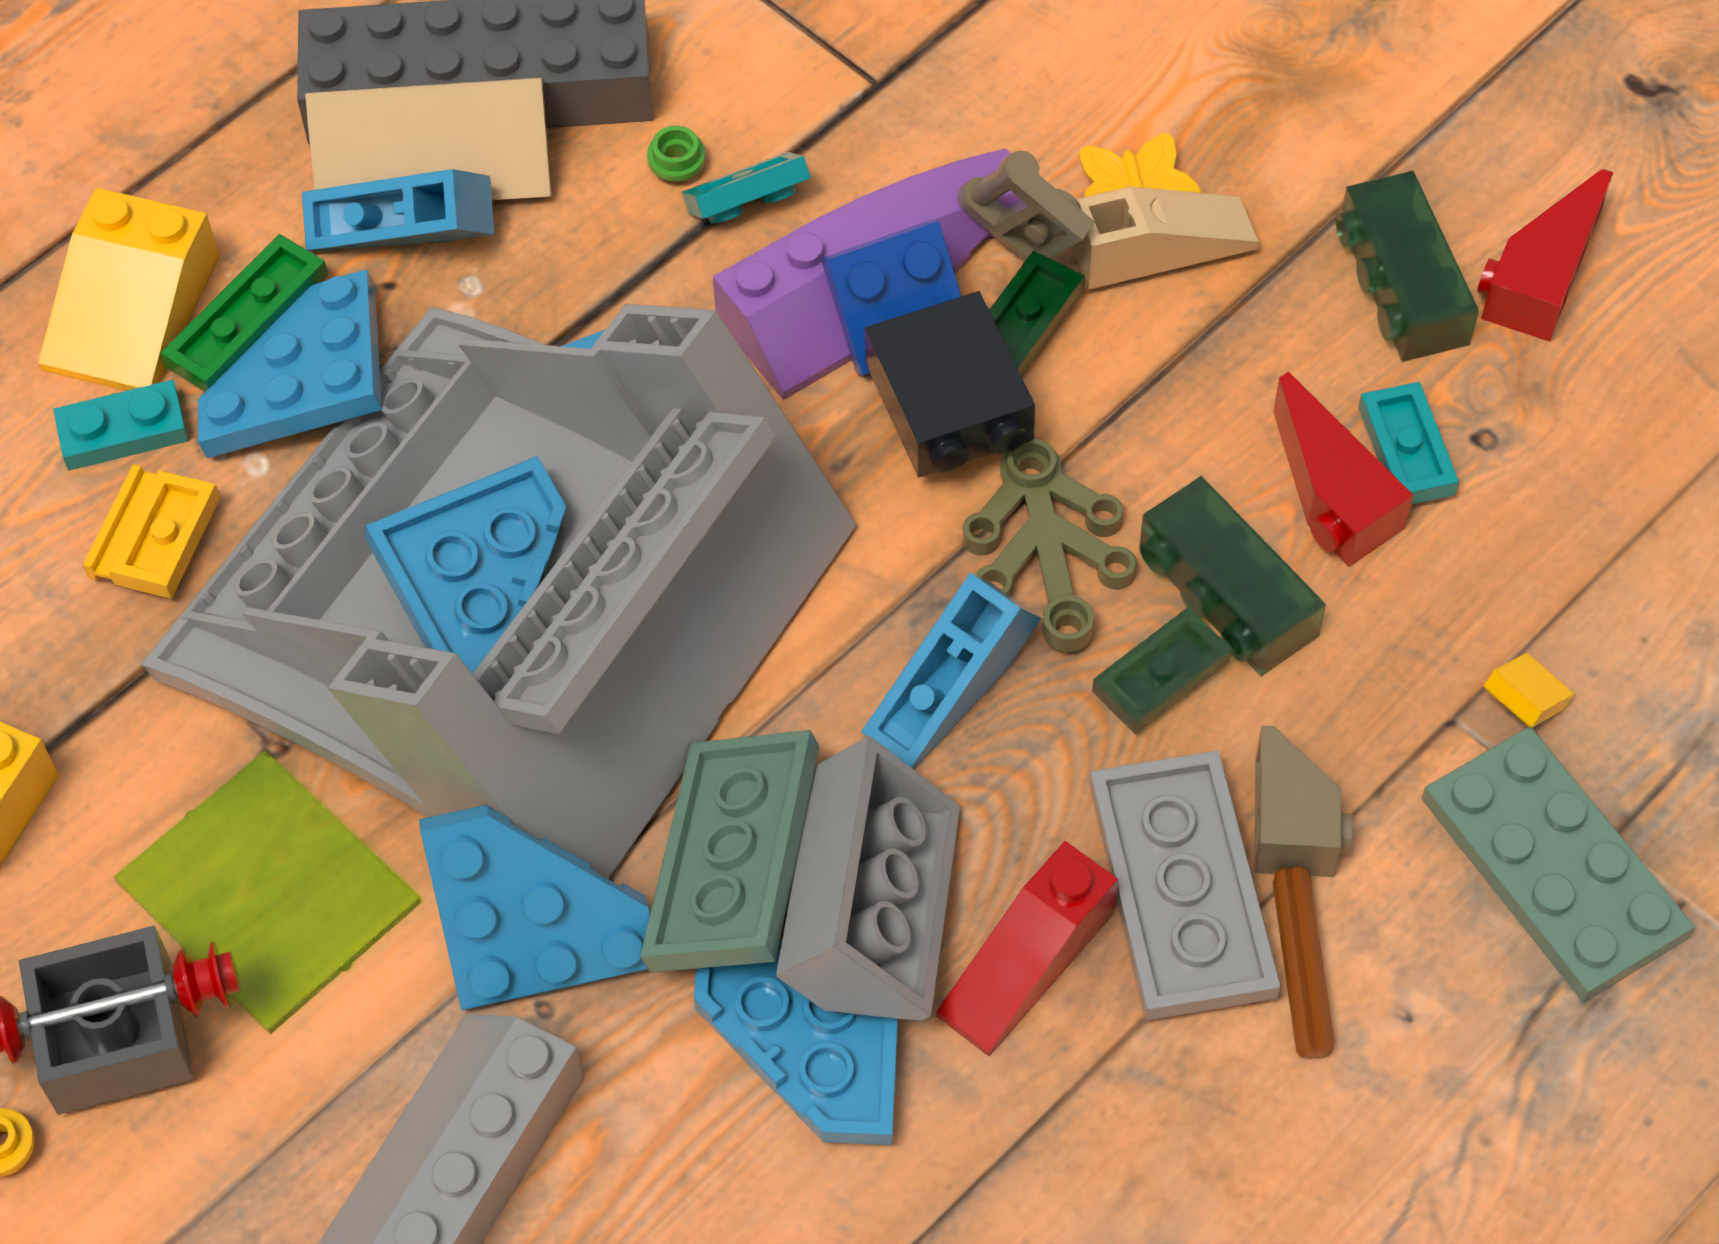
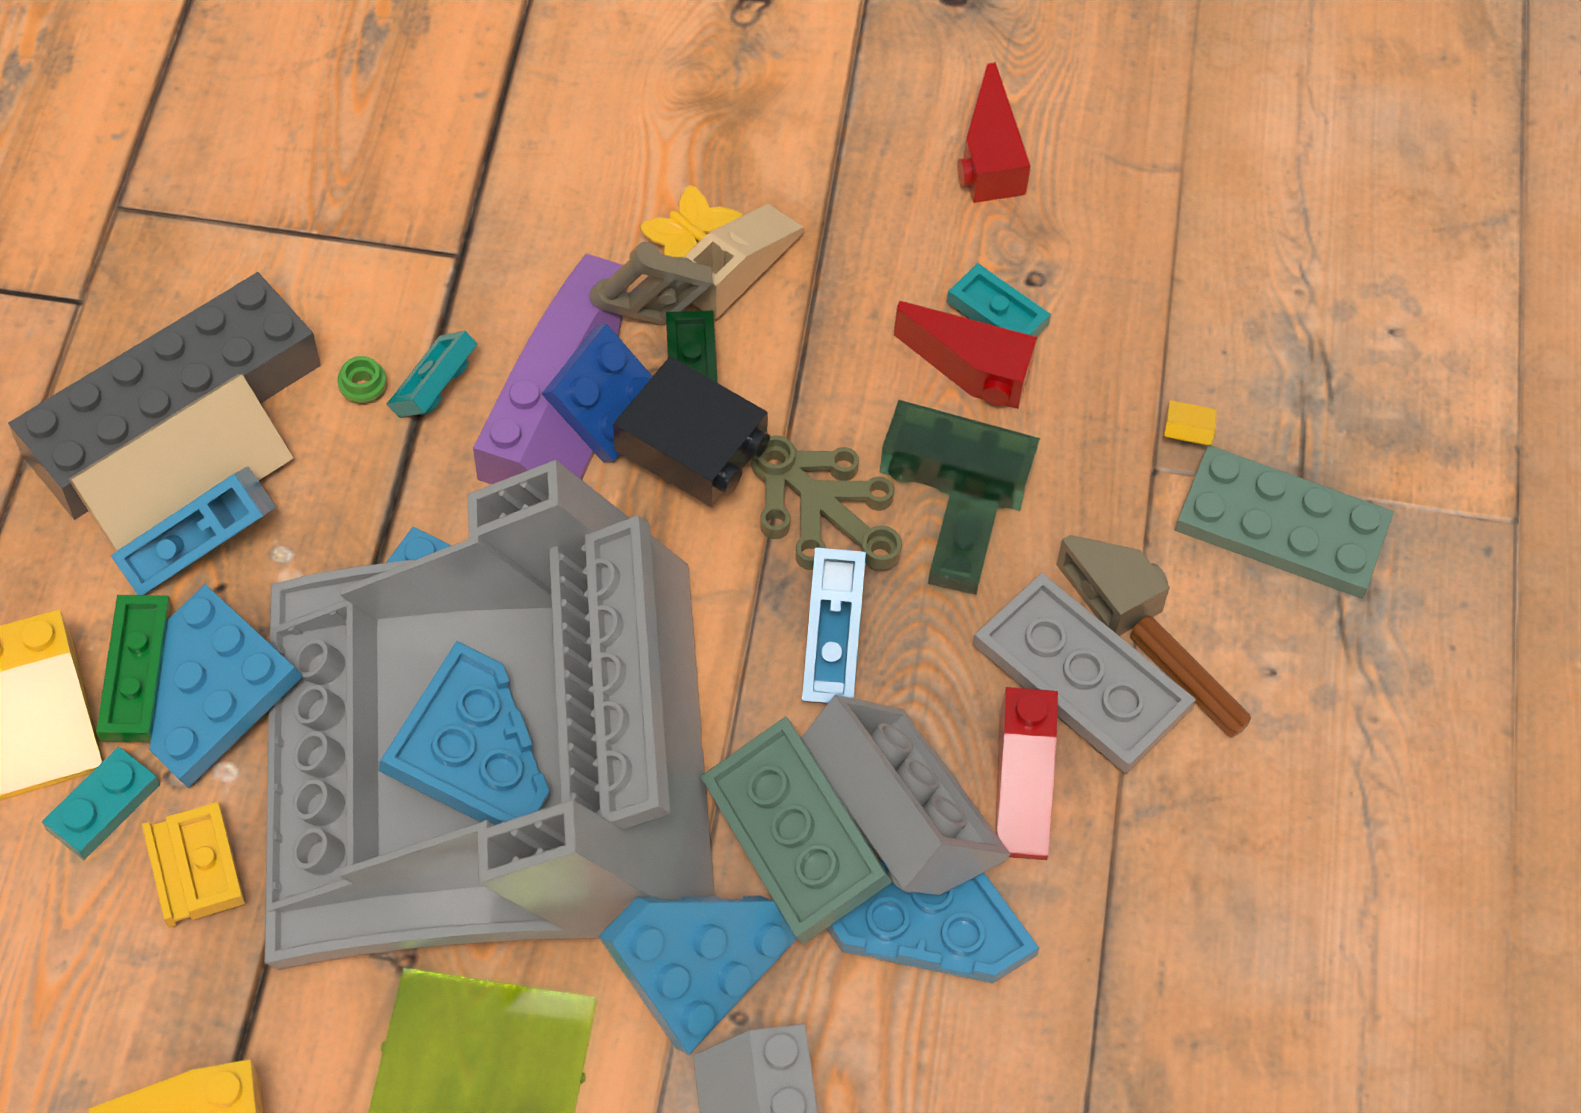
camera: 40 degrees left, 0 degrees up
(1406, 266) = (910, 191): clear green brick -> none

